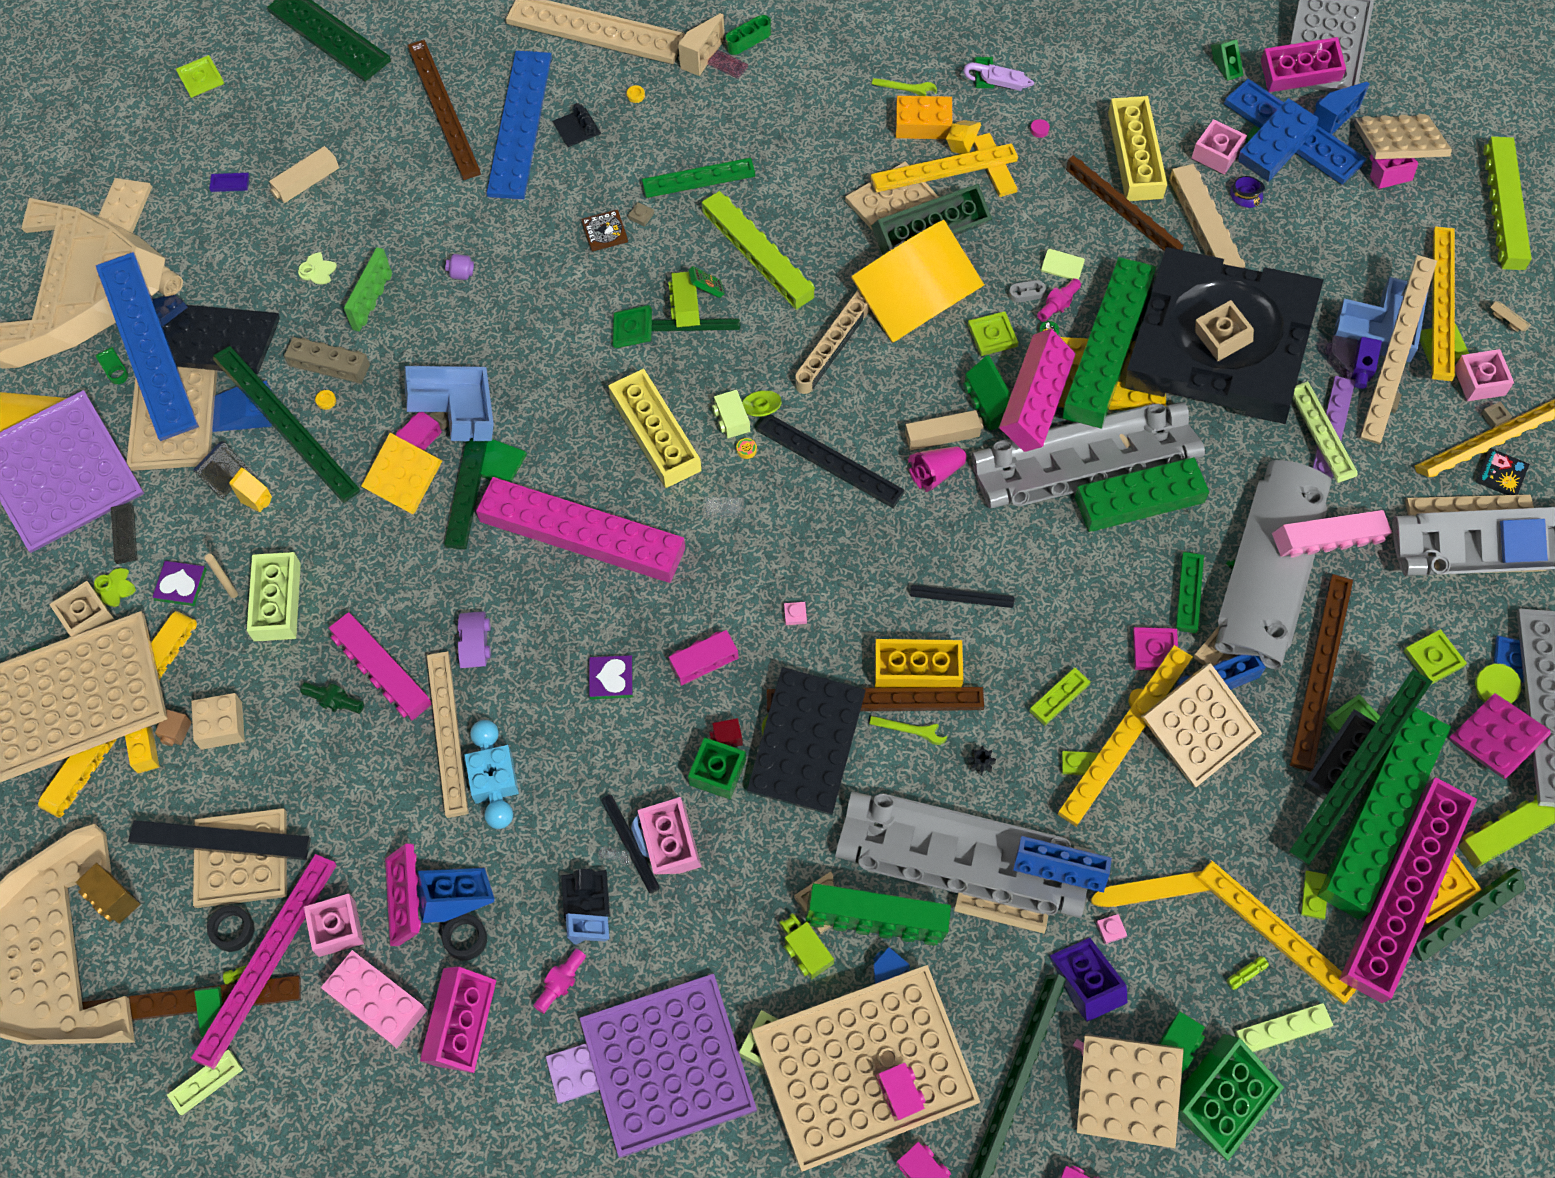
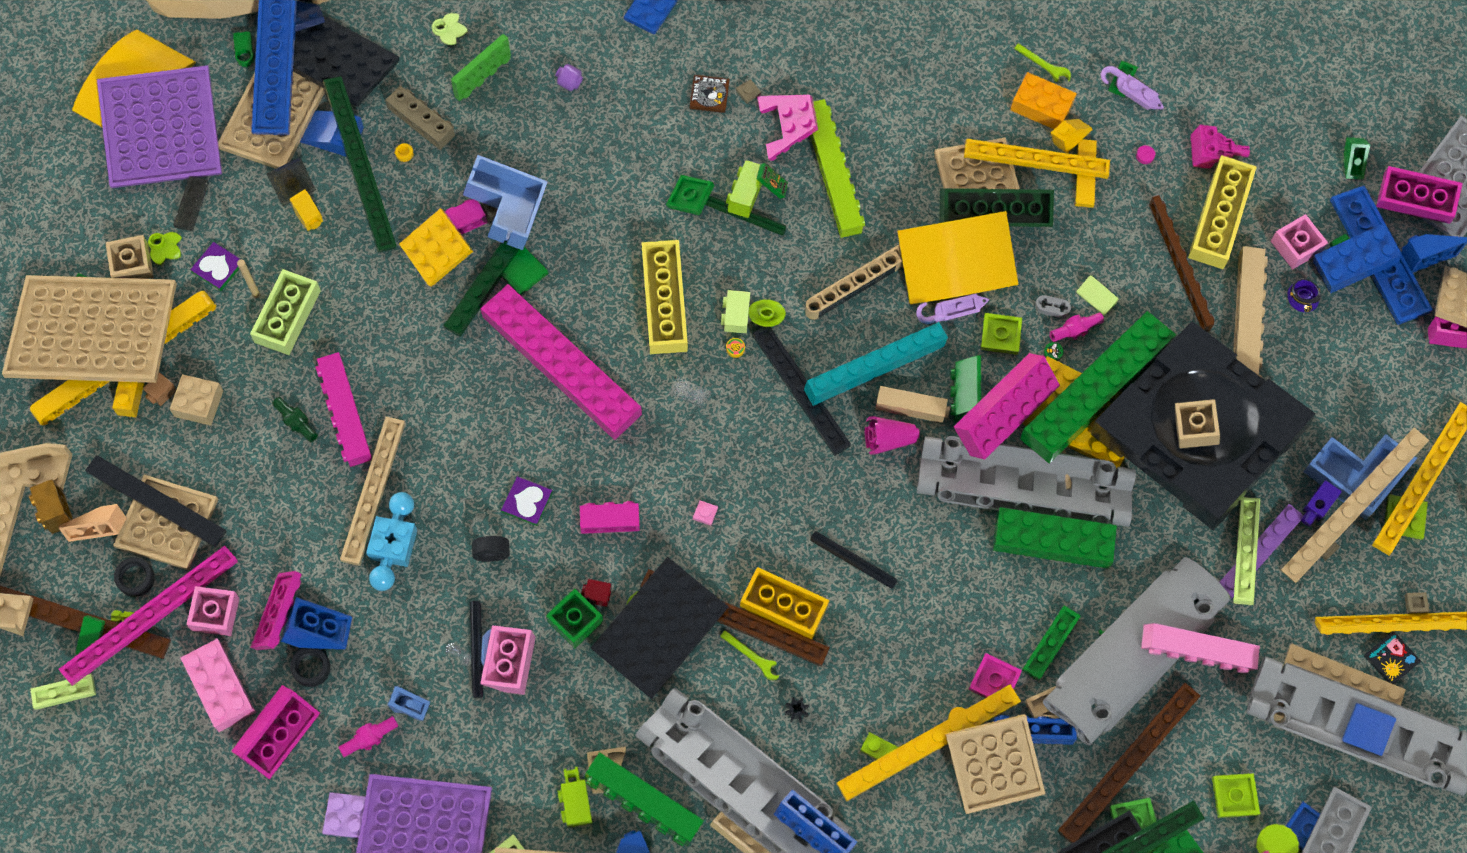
camera: 20 degrees right, 5 degrees up
(163, 891) = (94, 524): none -> light nougat slope
(473, 639) = (431, 414): medium lavender brick -> none
(586, 893) = (421, 675): black plate -> none
(598, 736) = (490, 548): none -> black tyre
(698, 177) = (814, 77): green plate -> none
(701, 218) = (796, 120): none -> wing
(890, 406) = (875, 363): none -> teal brick
(936, 329) = (953, 308): none -> lavender plate
(1059, 696) = (891, 684): lime plate -> none
(1095, 98) = (1210, 145): none -> dark pink brick
(1341, 355) = (1304, 487): clear purple slope -> none
(1483, 375) = (1423, 562): bright pink brick -> none

